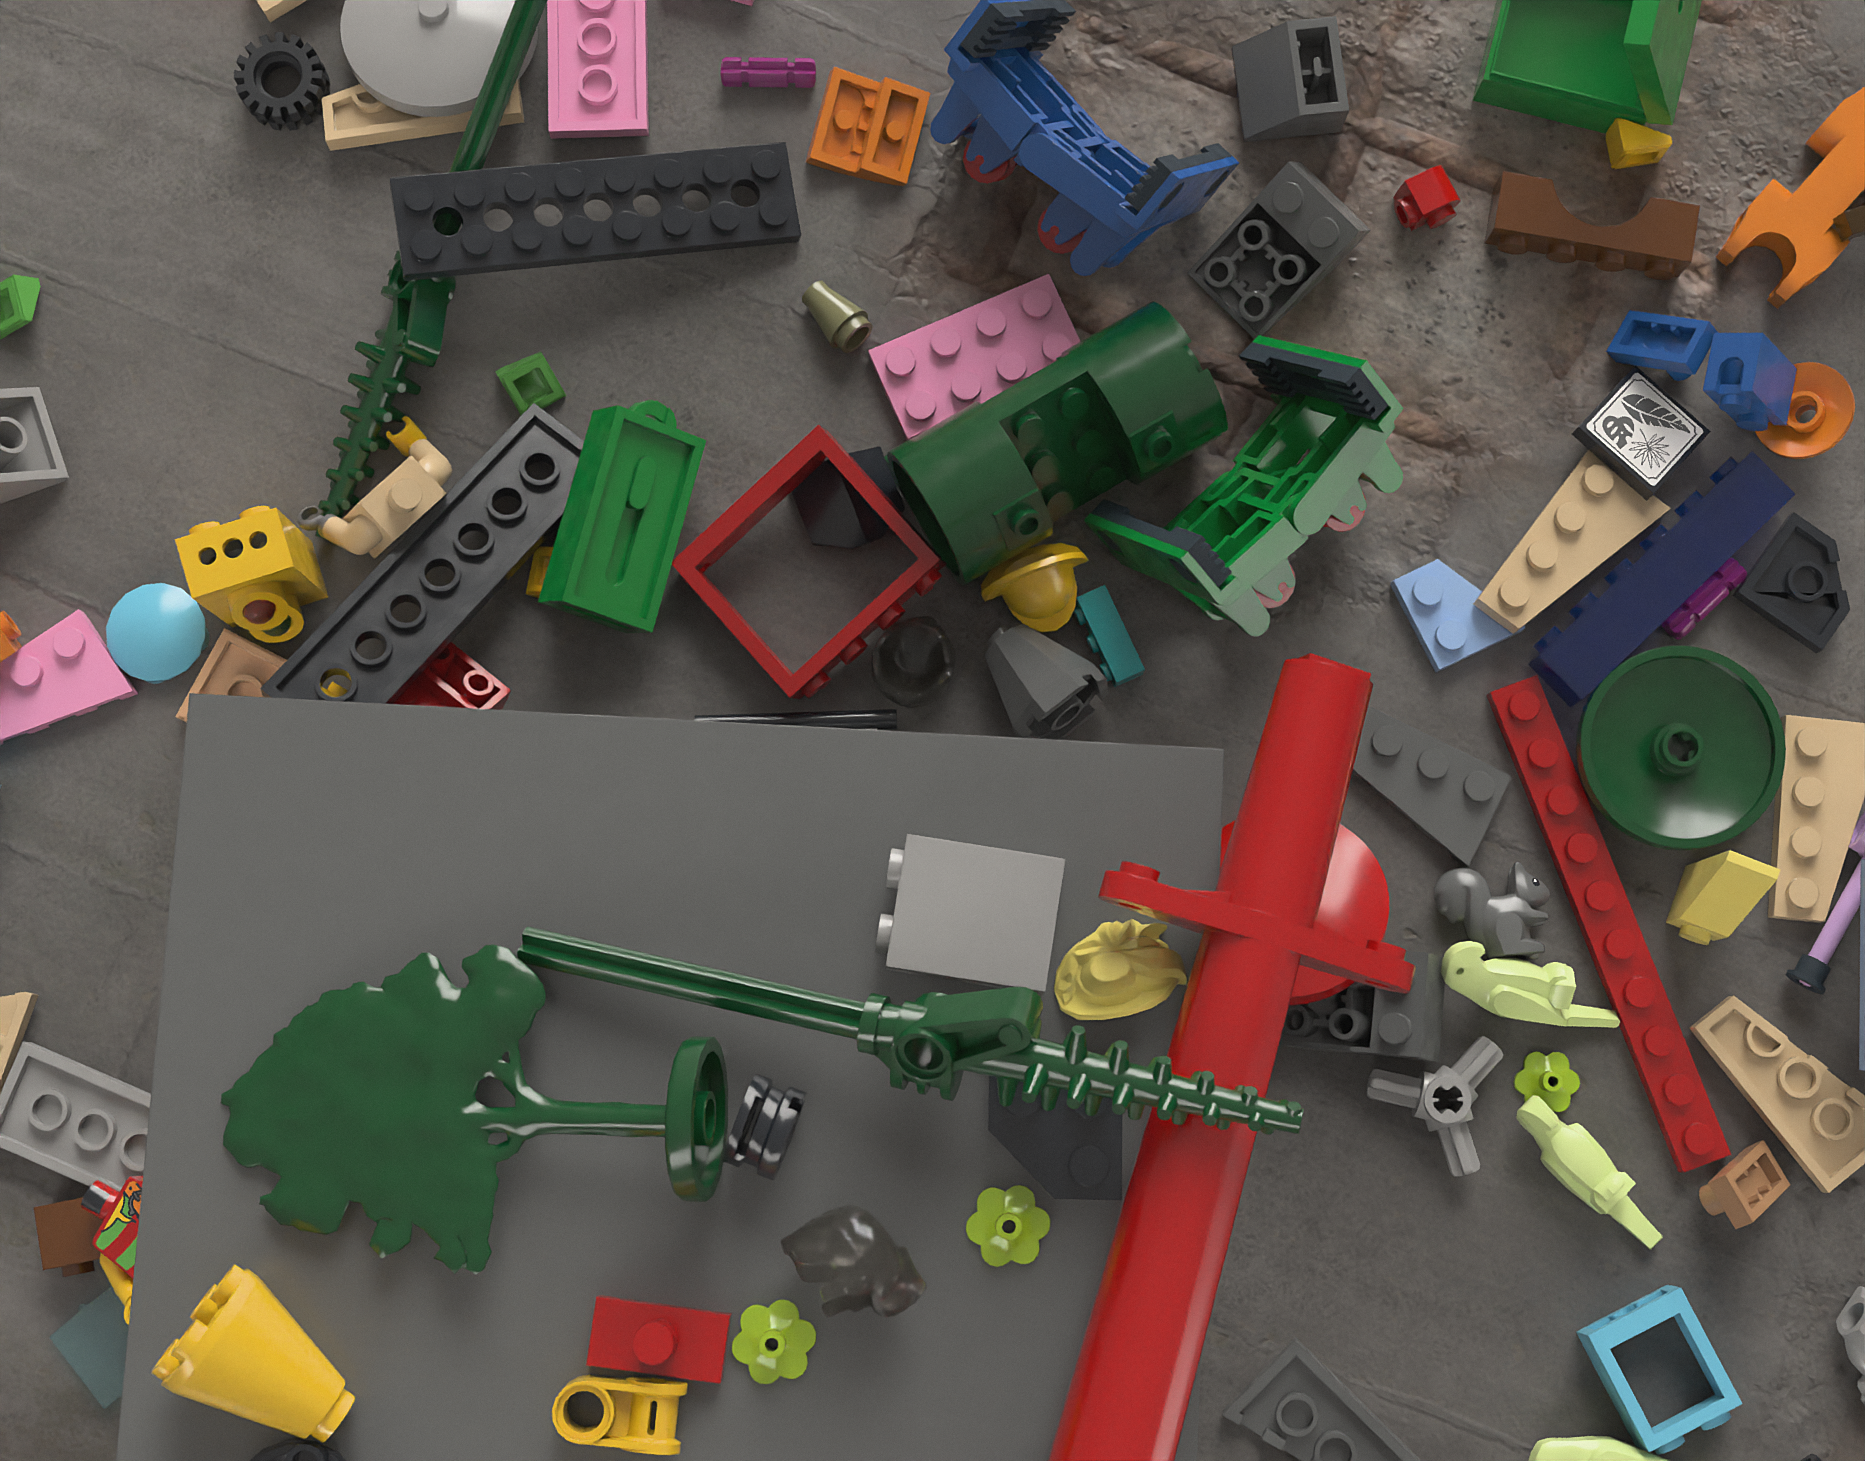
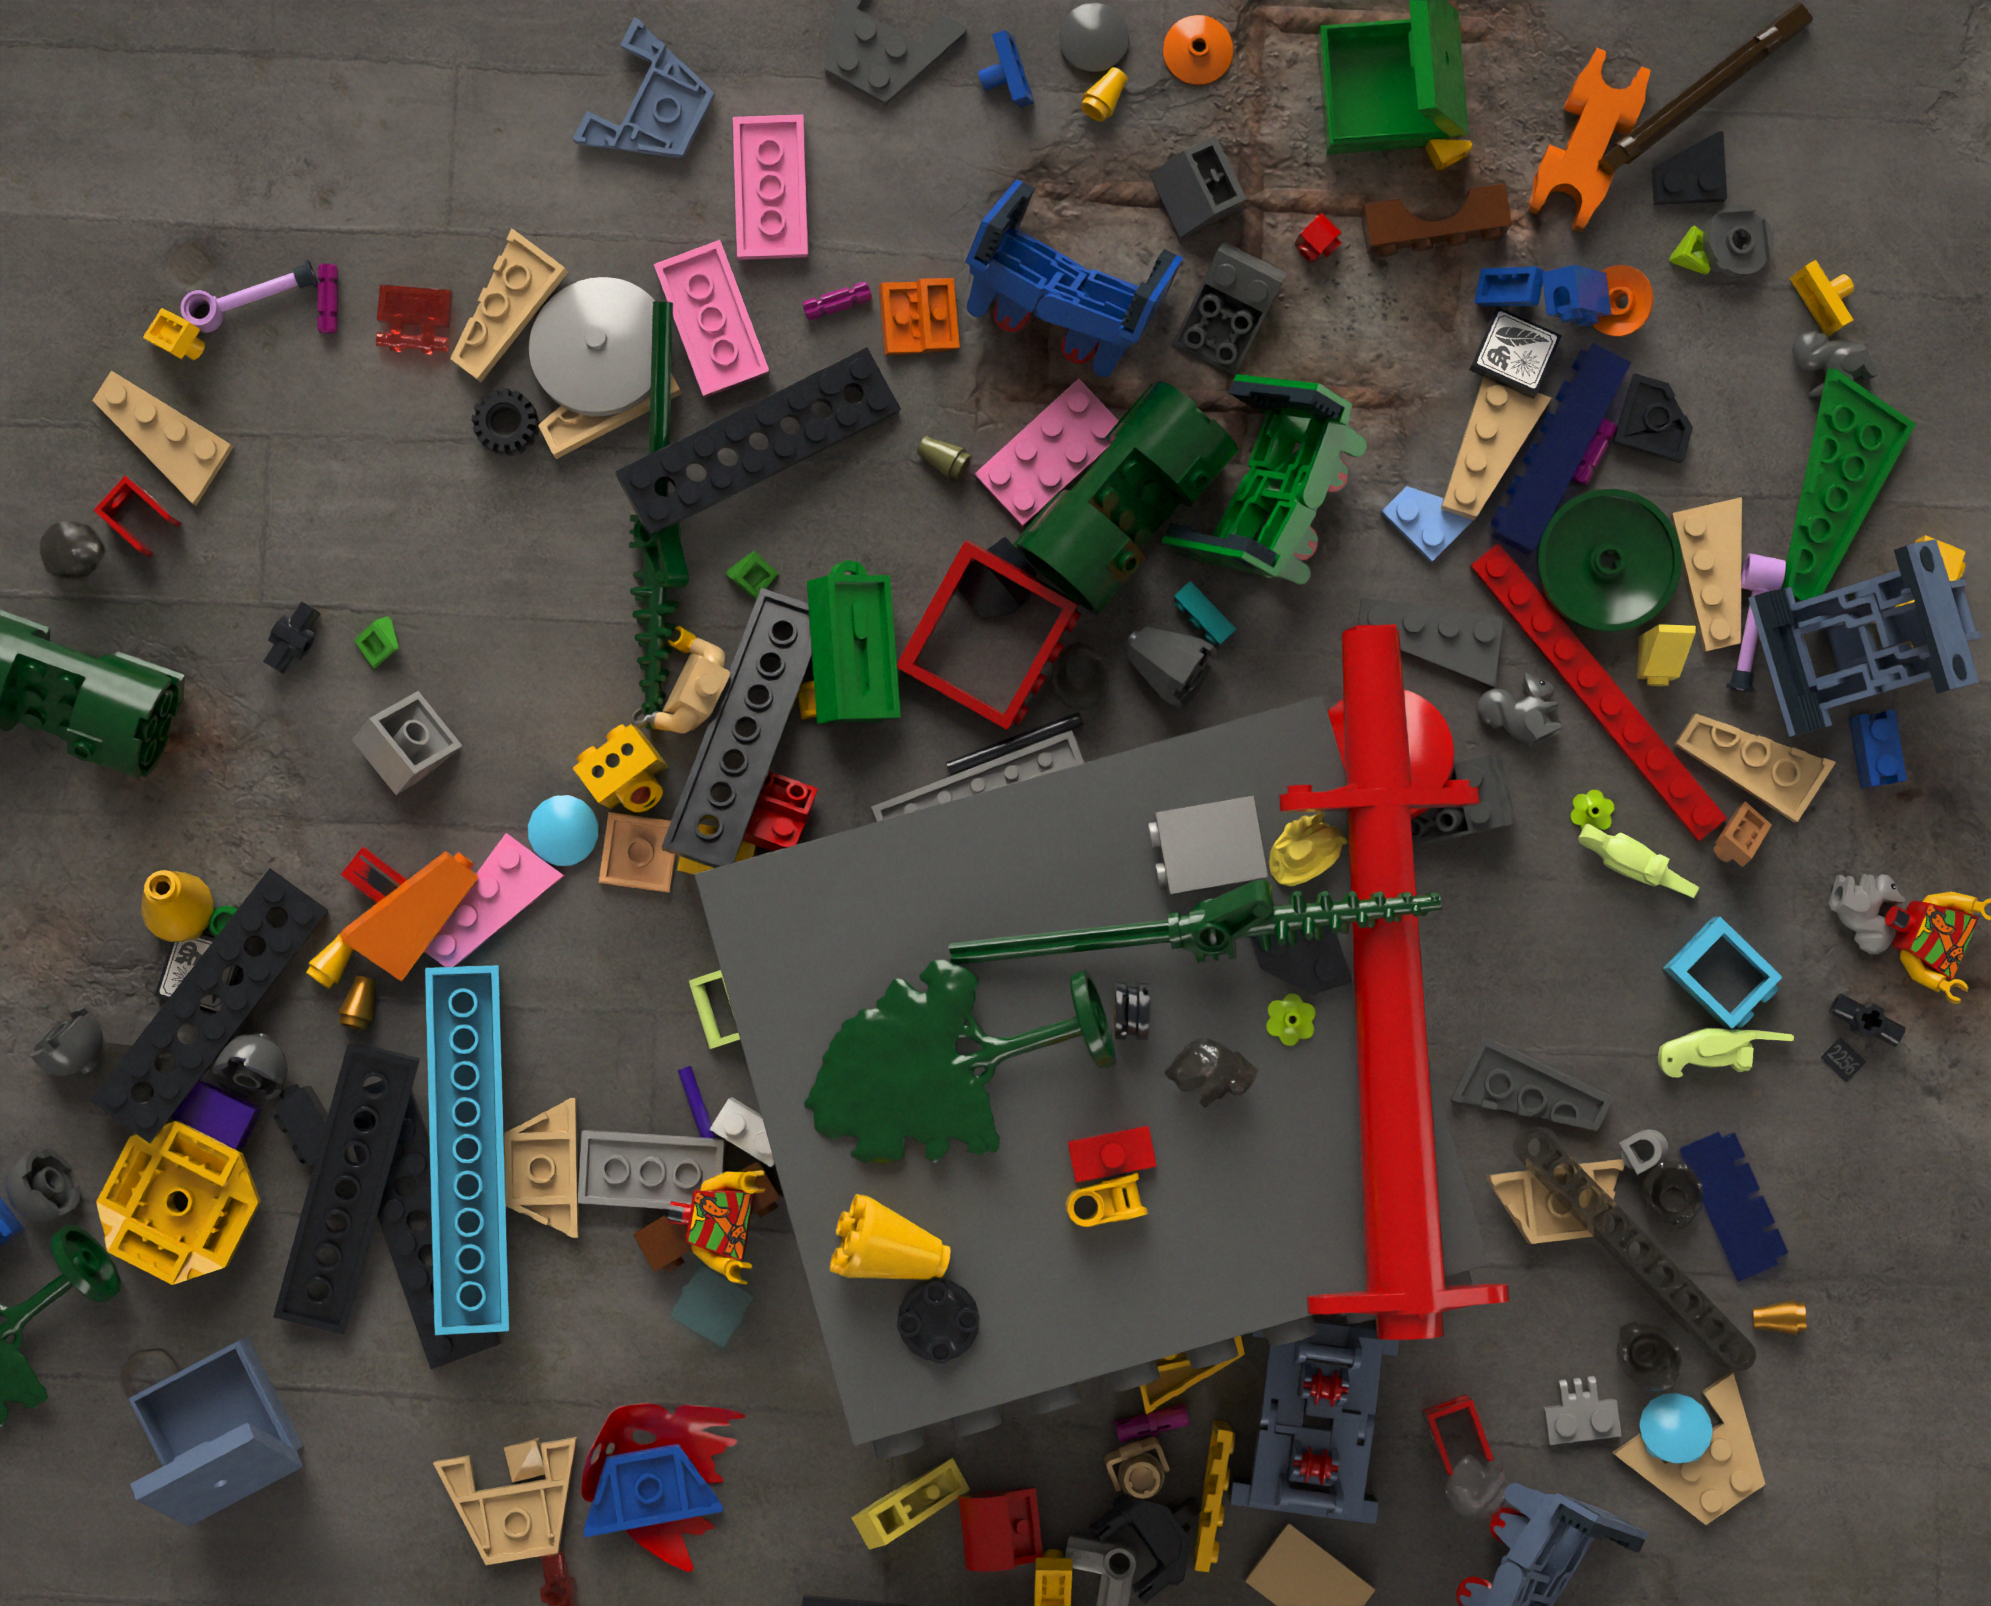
camera: 15 degrees left, 5 degrees up
(779, 1322) = (1168, 1125): lime plant -> none
(1038, 585) = (1146, 596): yellow helmet -> none
(1418, 1095) = (1510, 849): light grey bush -> none
(1520, 988) = (1554, 757): yellowish green animal -> none

